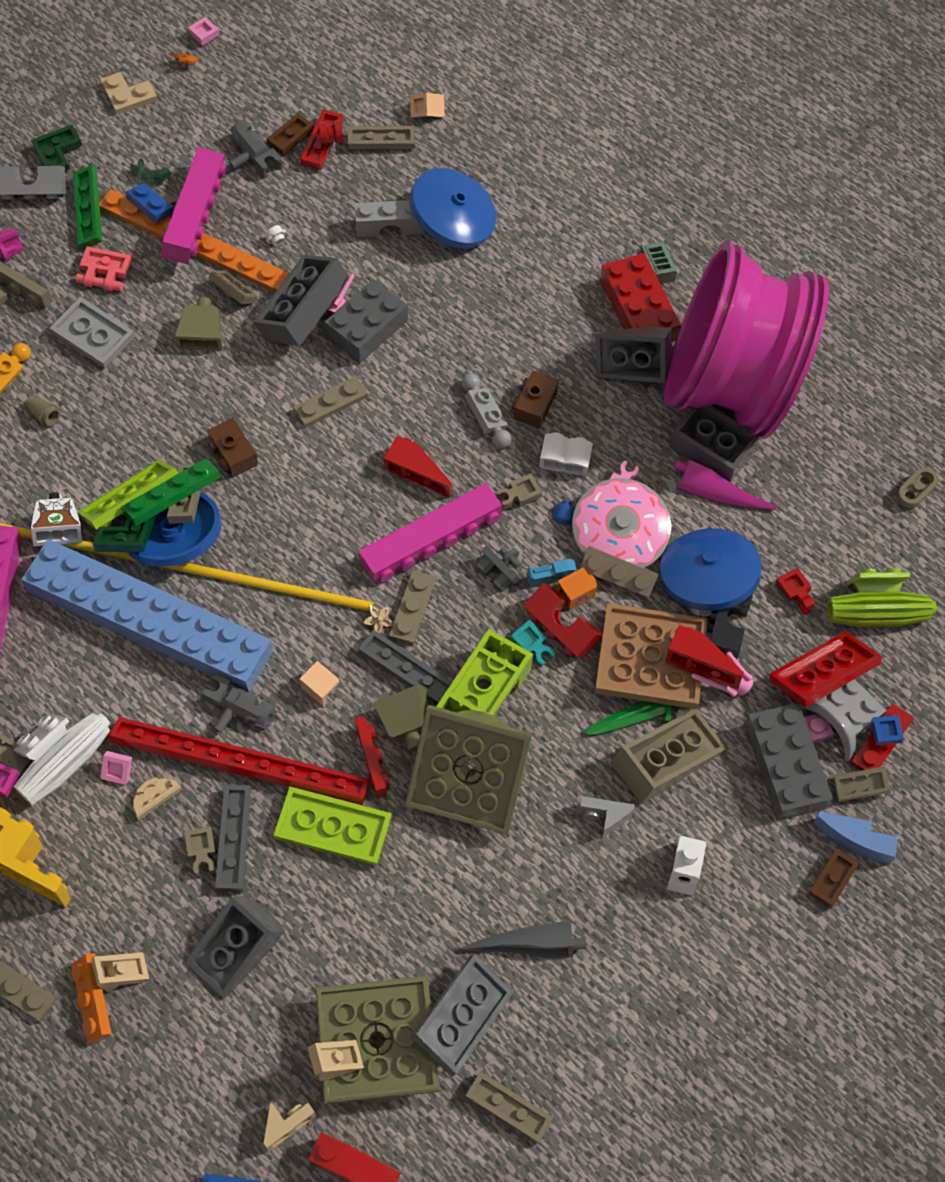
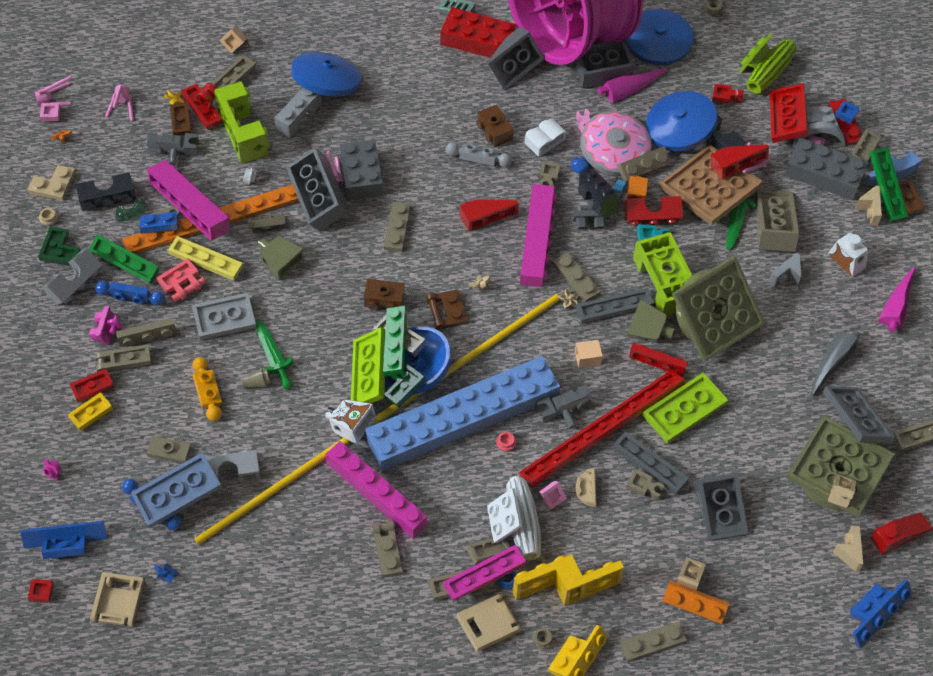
camera: 50 degrees left, 5 degrees down
(65, 263) = (129, 292): none -> blue plate
(83, 406) = (274, 357): none -> green sword
(85, 116) = (48, 217): none -> tan plate
(146, 270) = (205, 258): none -> light yellow plate
(149, 680) = (506, 441): none -> coral plate
(163, 148) = (120, 191): none -> black arch
(218, 14) = (44, 95): none -> bright pink plant
(274, 68) = (121, 95): none -> bright pink plant
(274, 519) = (452, 306): none -> reddish brown plate
(310, 110) = (174, 98): none -> yellow plant
(325, 522) = (480, 282): none -> tan plant
(335, 158) = (248, 140): none -> lime plate
(527, 551) = (595, 187): none -> black arch
(664, 965) = (895, 310): none -> dark pink piece
(788, 840) = (871, 203): none -> tan slope
(813, 472) = (661, 37): none -> blue dish
(822, 841) = (888, 184): none -> green plate

